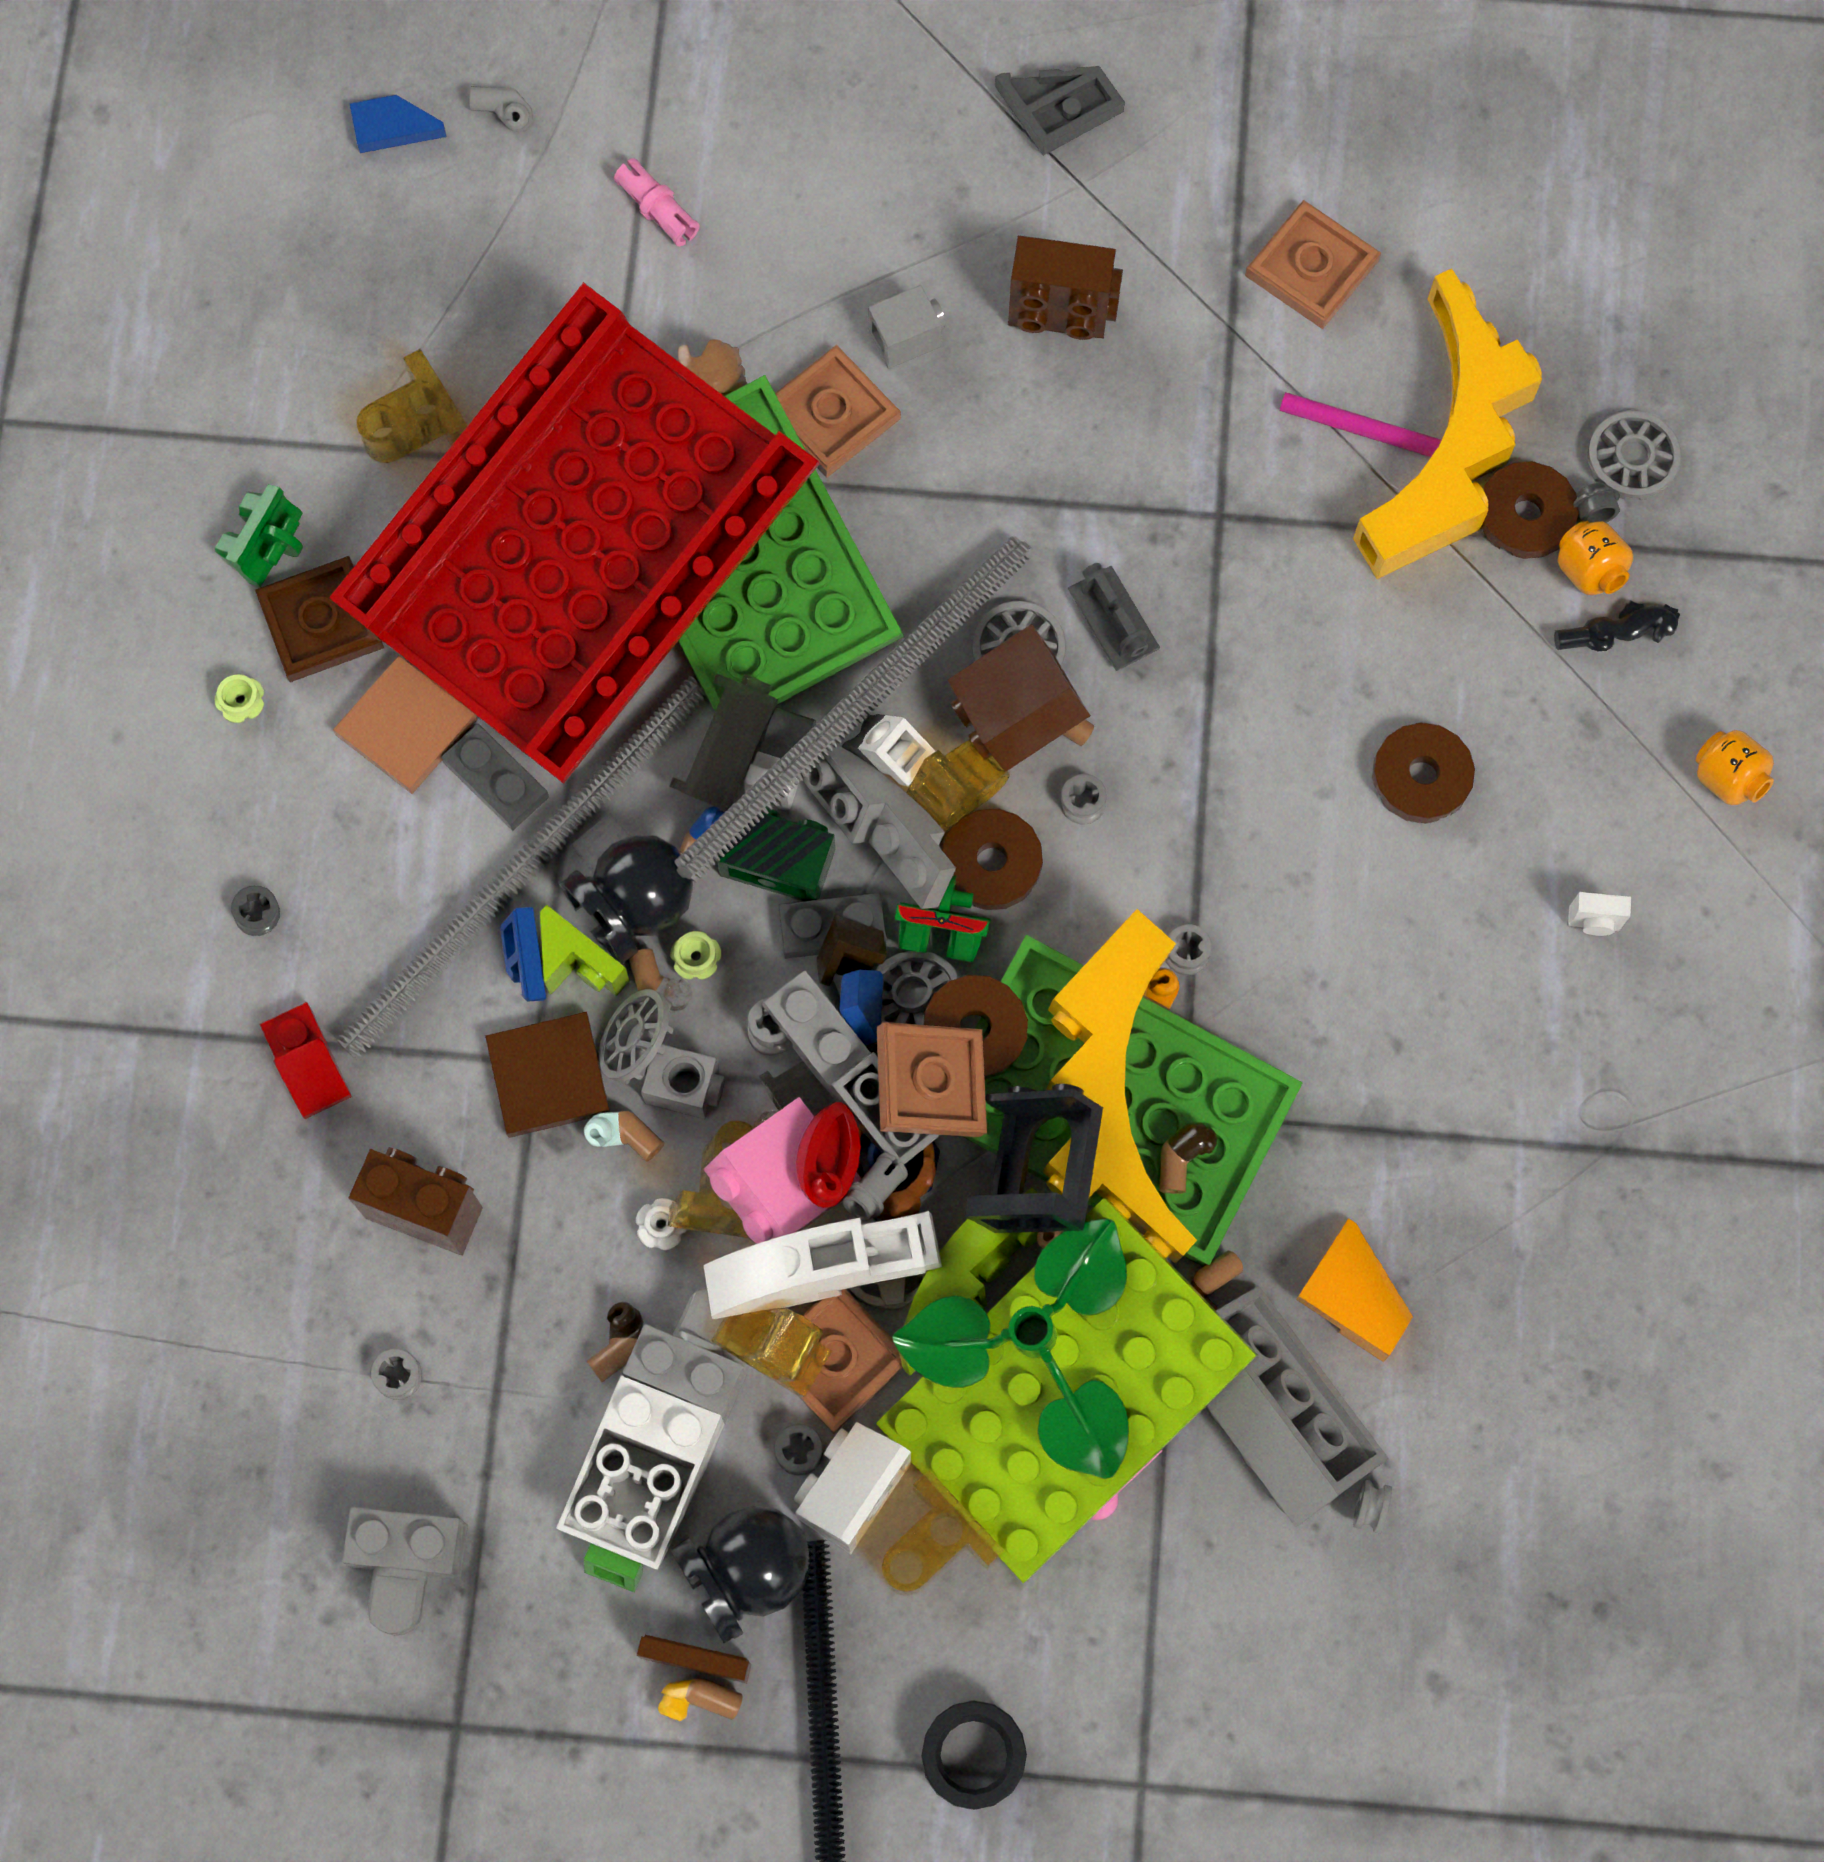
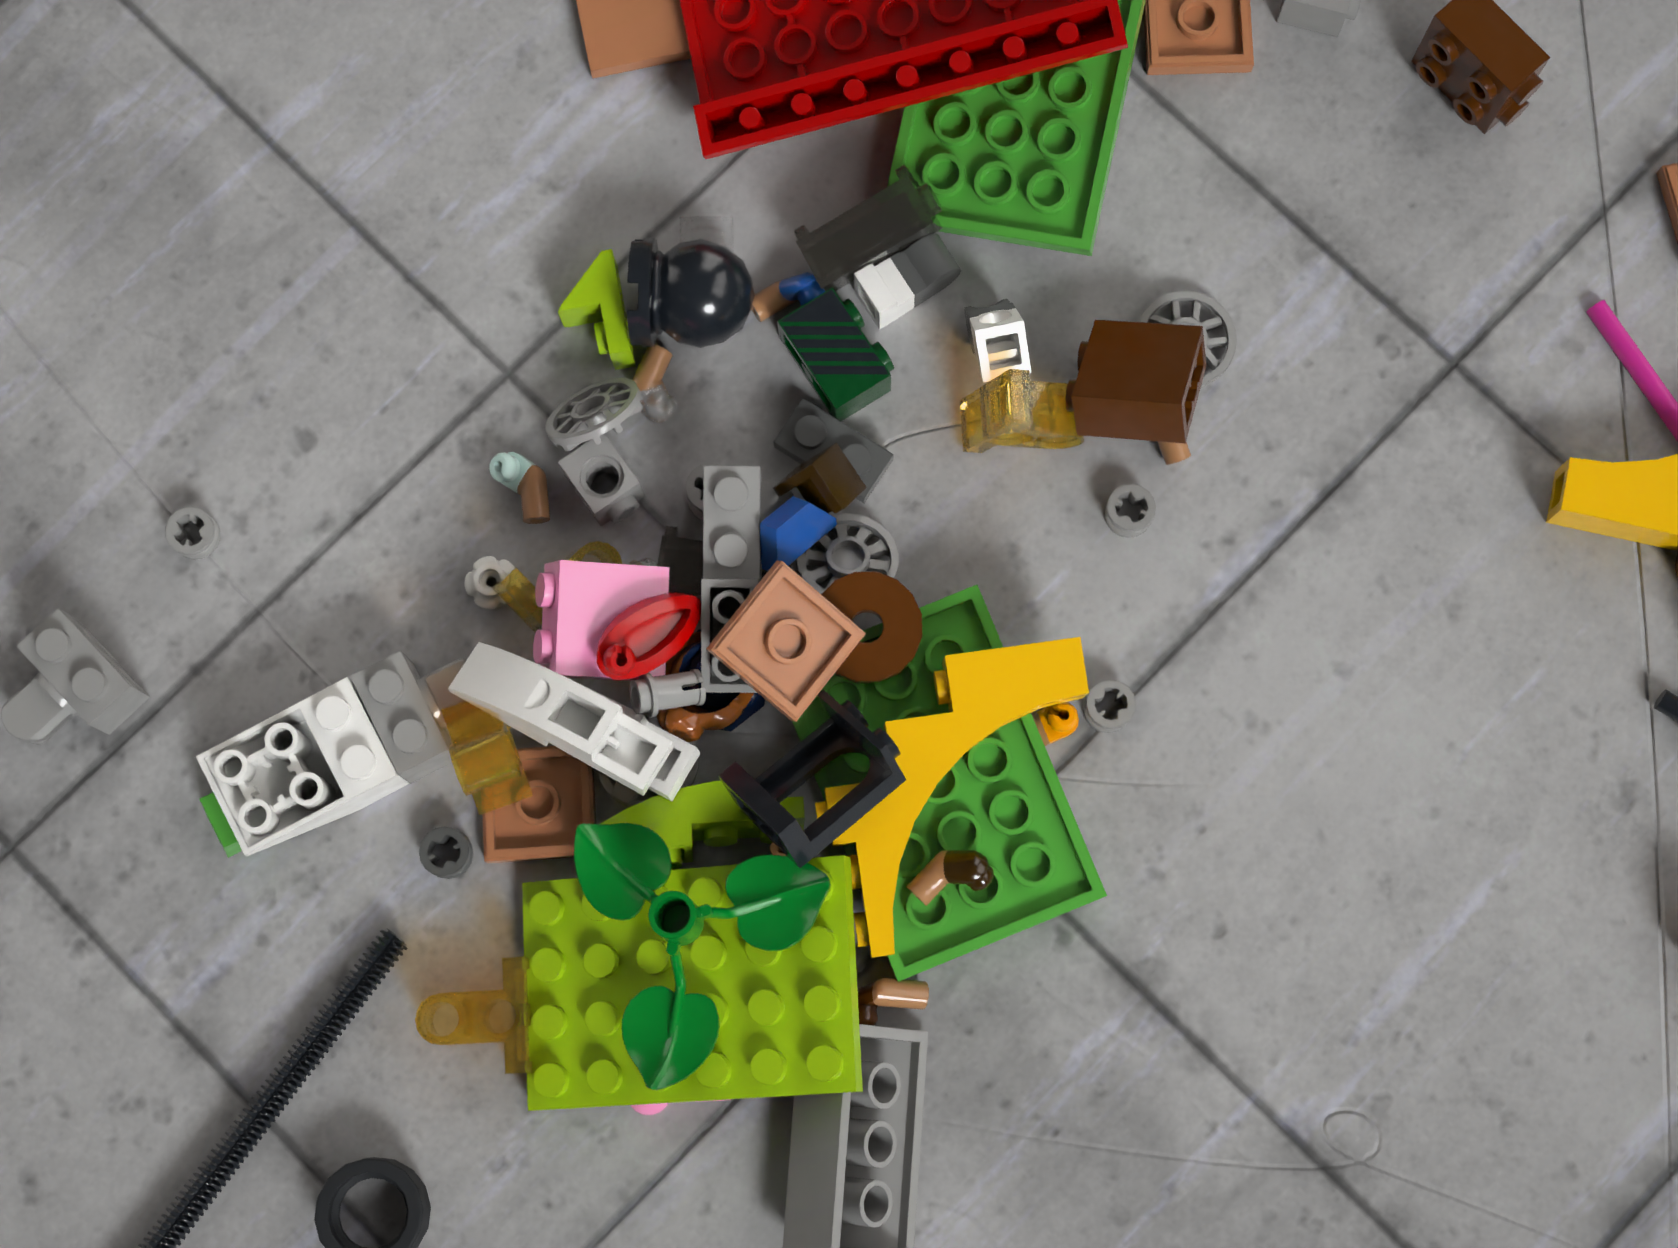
camera: 45 degrees right, 5 degrees up
(241, 904) = (388, 62): dark grey bush -> none
(305, 1060) = (330, 227): red slope -> none
(416, 1201) = (312, 406): reddish brown brick -> none
(495, 777) = (667, 115): dark grey plate -> none
(521, 867) = (629, 206): light grey axle -> none
(523, 953) = (563, 276): blue tile -> none
(547, 1074) = (505, 389): reddish brown tile -> none
(623, 1334) = (395, 637): arm -> none
(694, 1658) = (223, 950): reddish brown tile -> none
(695, 942) = (697, 374): yellowish green plate -> none
(700, 1694) = (206, 981): medium nougat arm -> none
(748, 1566) = (318, 912): black tile -> none
(848, 711) = (997, 280): light grey axle -> none
(852, 1486) = (455, 919): white slope -> none
(882, 813) = (945, 384): light grey slope -> none
(965, 928) = (906, 502): green hips -> none
(999, 831) = (1016, 469): reddish brown tile -> none
(1113, 616) = (1287, 376): dark grey hinge -> none
(1357, 1294) = (1003, 1107): light orange slope -> none
(1428, 745) = (1468, 701): reddish brown tile -> none
(1599, 913) = (1489, 962): white plate -> none

